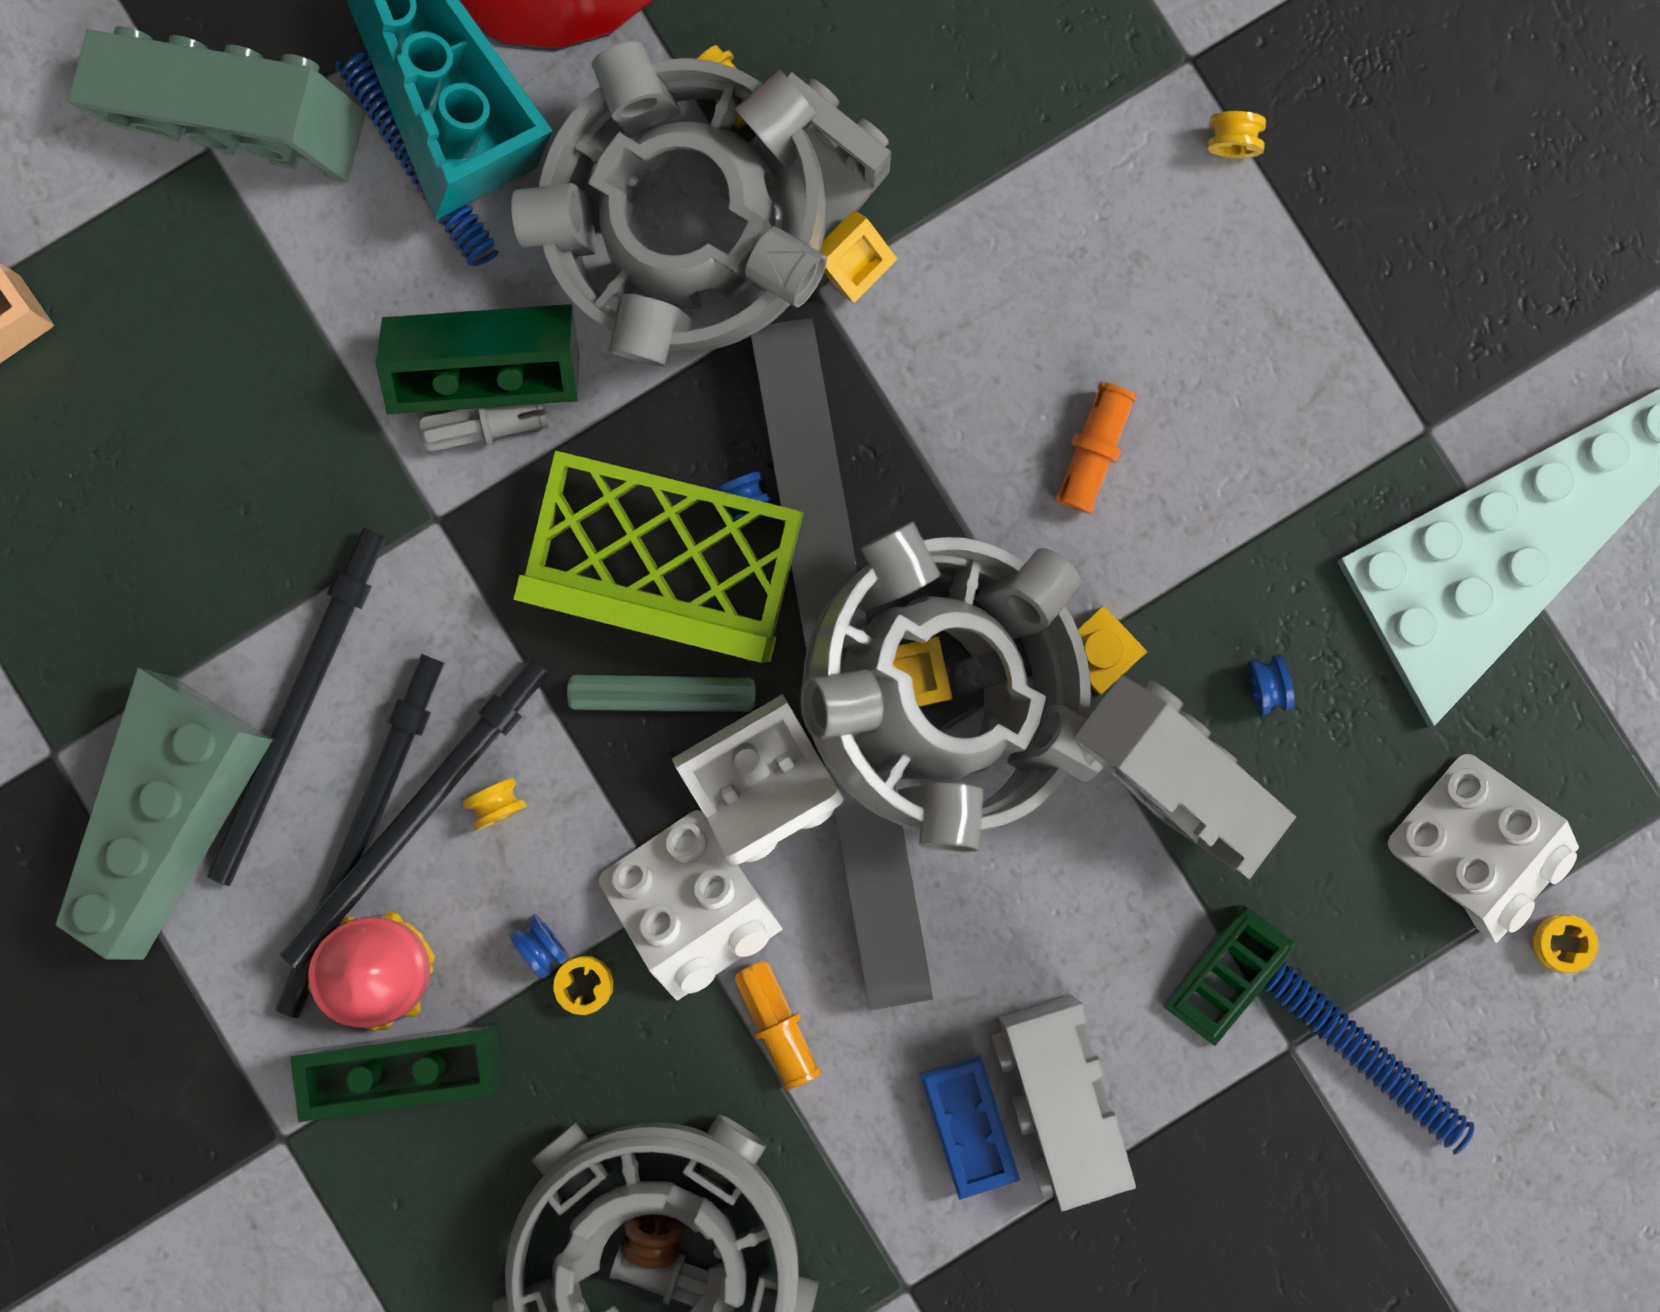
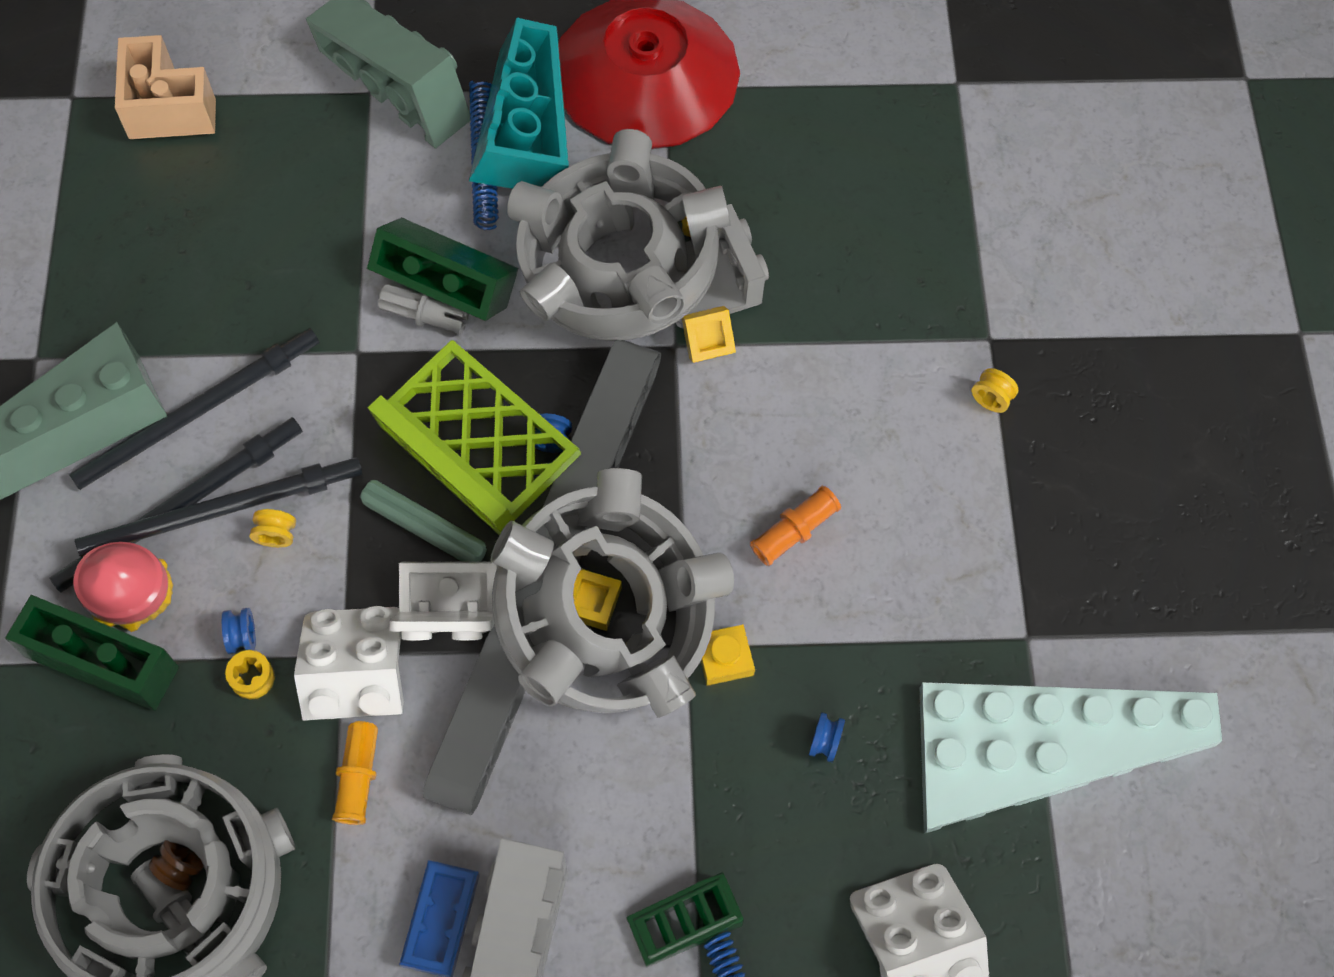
camera: 25 degrees right, 20 degrees down
(1183, 774) = (727, 743): light grey wedge -> none

